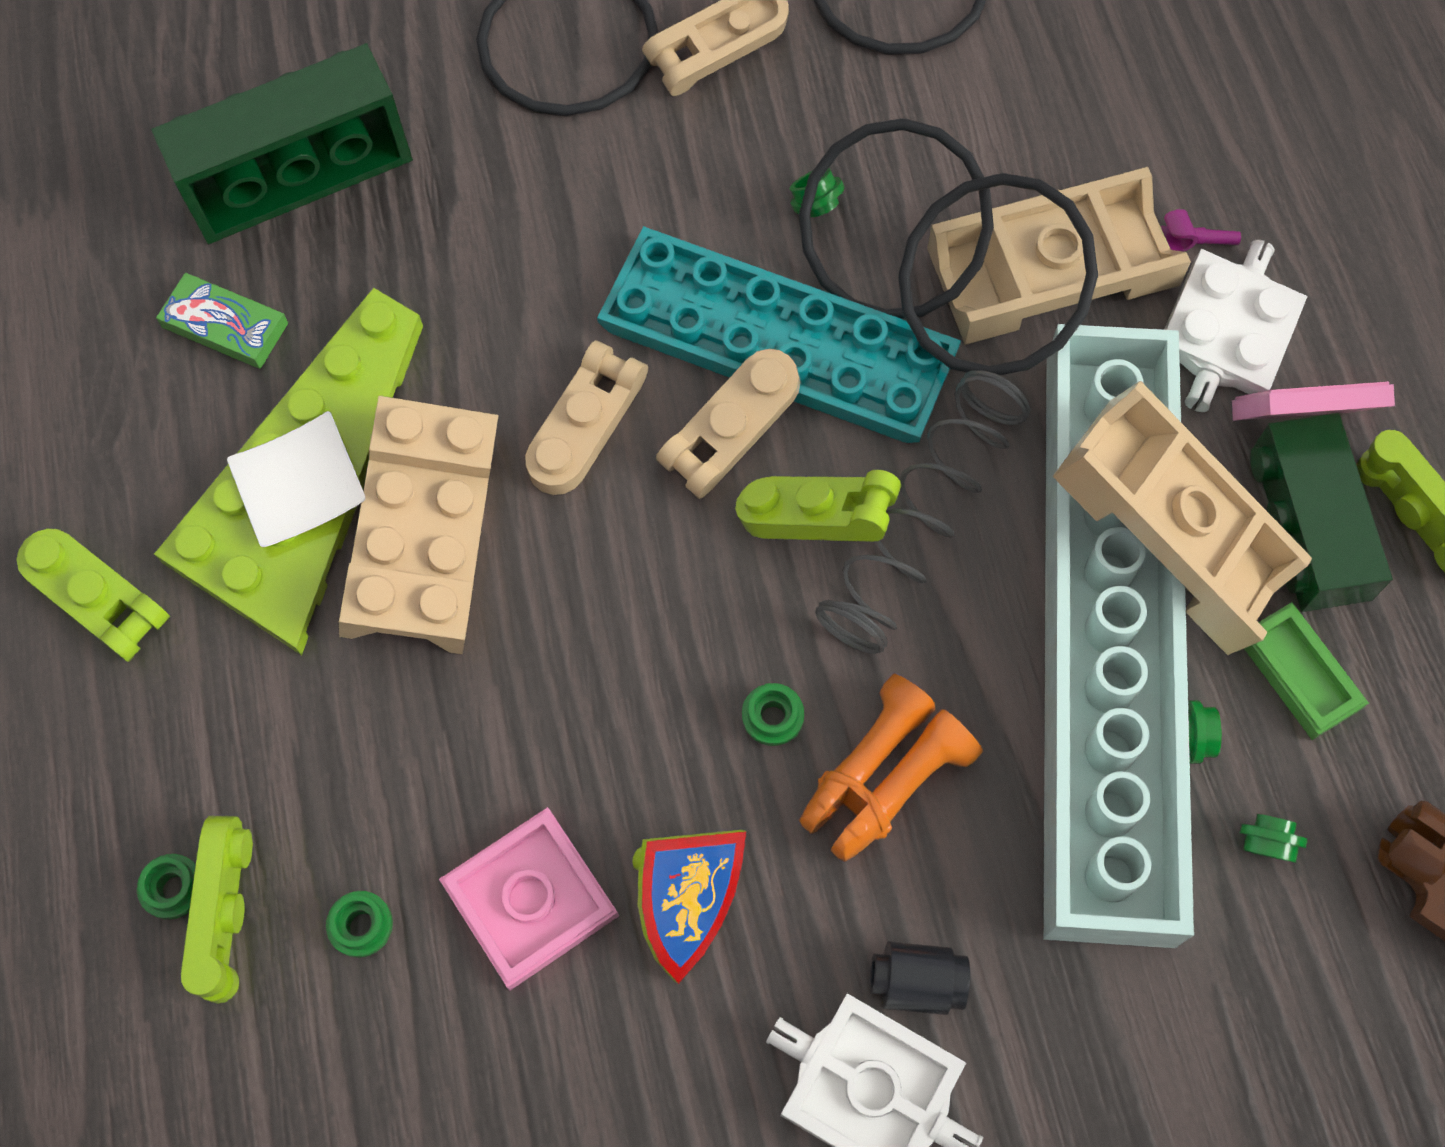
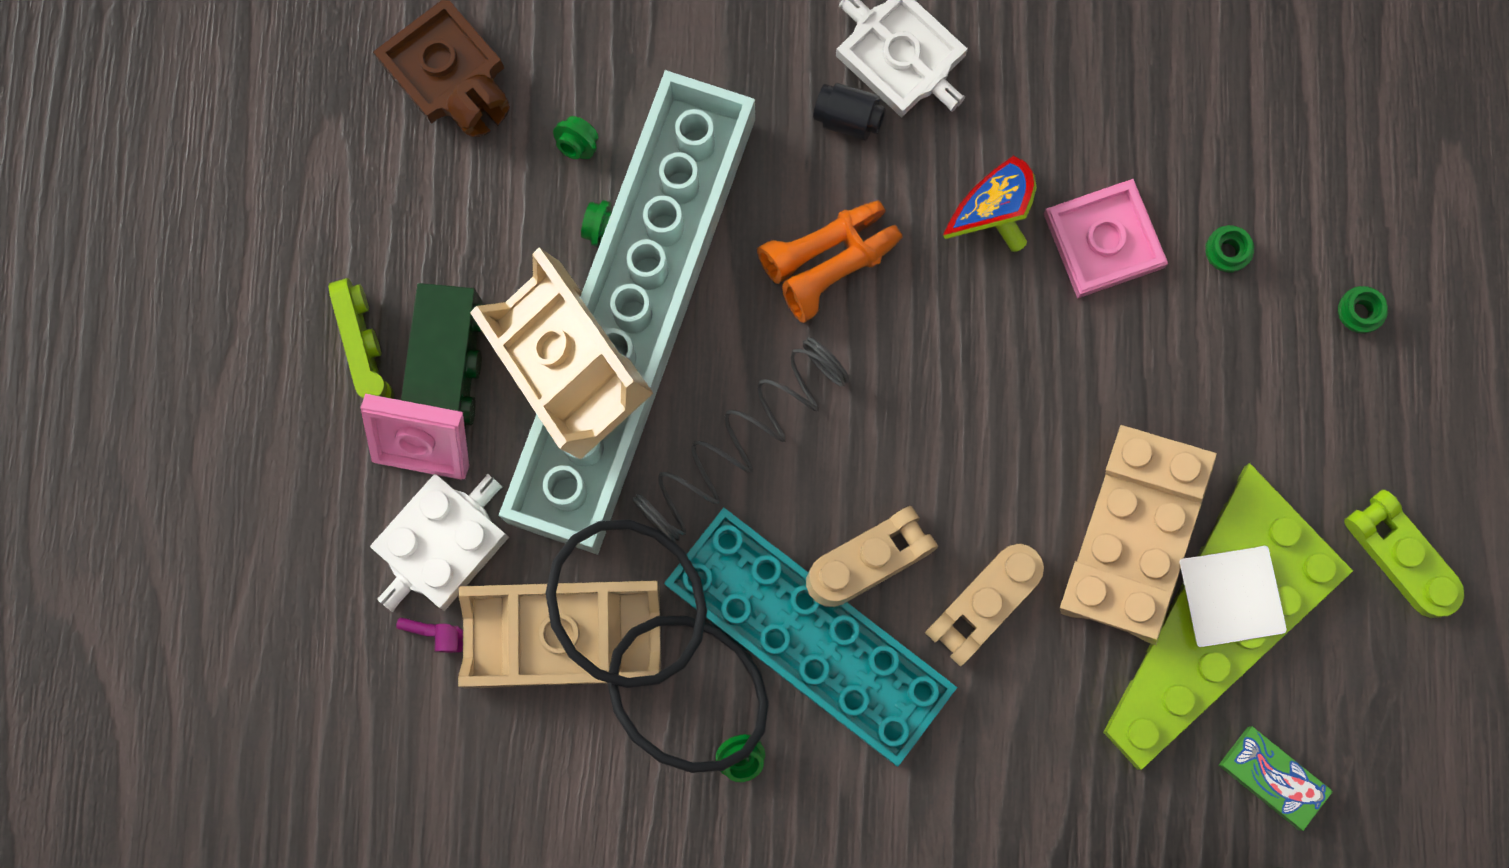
camera: 165 degrees left, 10 degrees up
(215, 909) = (1332, 279): lime plate -> none
(775, 696) = (903, 307): green plate -> none
(819, 507) = (827, 459): lime plate -> none
(1305, 672) = (500, 251): bright green tile -> none

